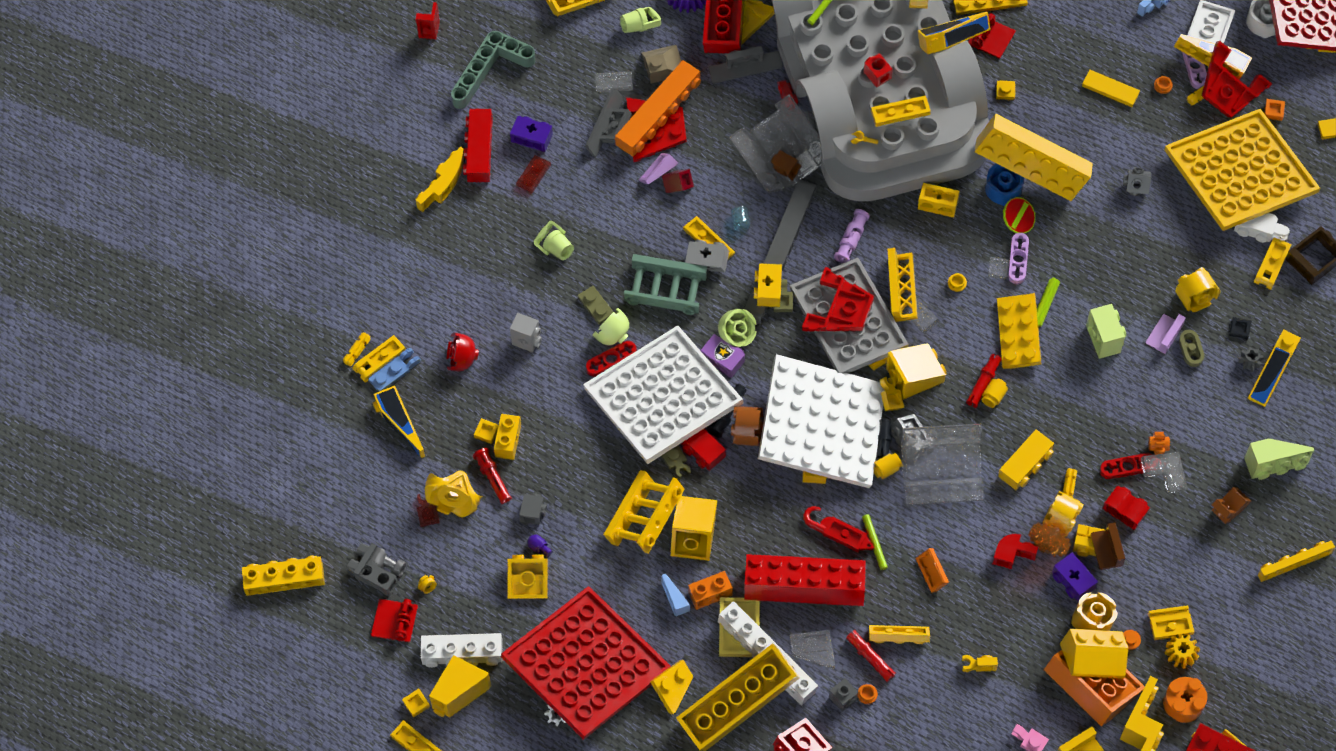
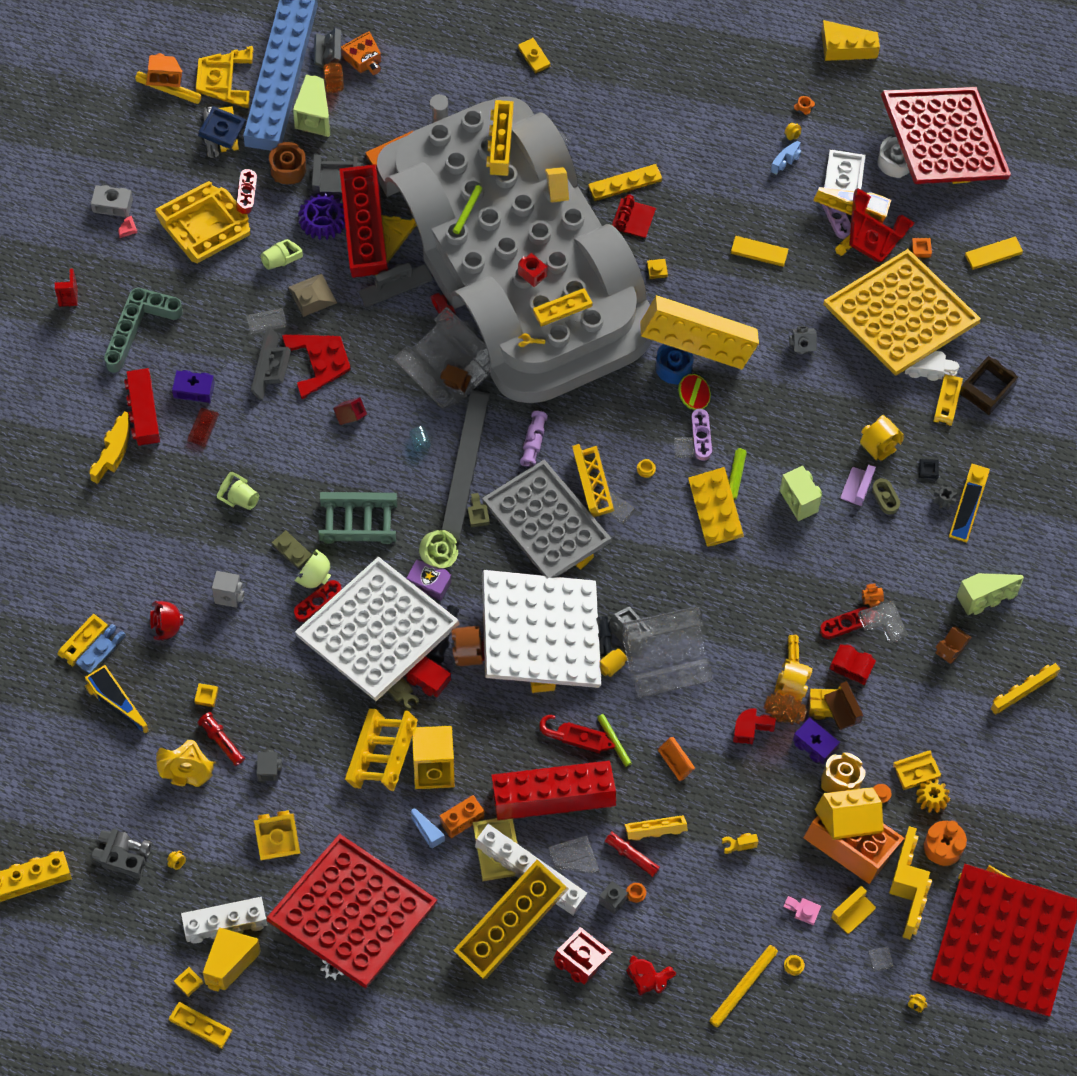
camera: 15 degrees left, 0 degrees up
(356, 349) = (57, 634): yellow axle -> none
(394, 620) = (150, 902): red hinge -> none
(427, 513) = (162, 788): clear red plate -> none
(507, 436) = (229, 697): yellow brick -> none
(538, 544) = (281, 800): dark purple cylinder -> none
(658, 108) = (317, 341): orange brick -> none
(658, 168) = (328, 401): lavender slope -> none
(672, 685) = (442, 918): yellow wing -> none
(700, 231) = (392, 466): yellow tile -> none
(715, 262) = (403, 487): light grey brick -> none
(770, 275) = (462, 491): yellow brick -> none
(847, 310) = (545, 511): red wing -> none
(890, 396) = (603, 593): yellow plate -> none
(915, 369) = (621, 562): slope -> none
(938, 200) = (613, 389): yellow brick -> none
(952, 33) = (598, 221): slope -> none
(987, 374) = (693, 554): red pin -> none
(994, 392) = (703, 572): yellow brick -> none
(1026, 460) = (747, 634): yellow brick -> none
(1163, 85) = (809, 240): orange plate -> none

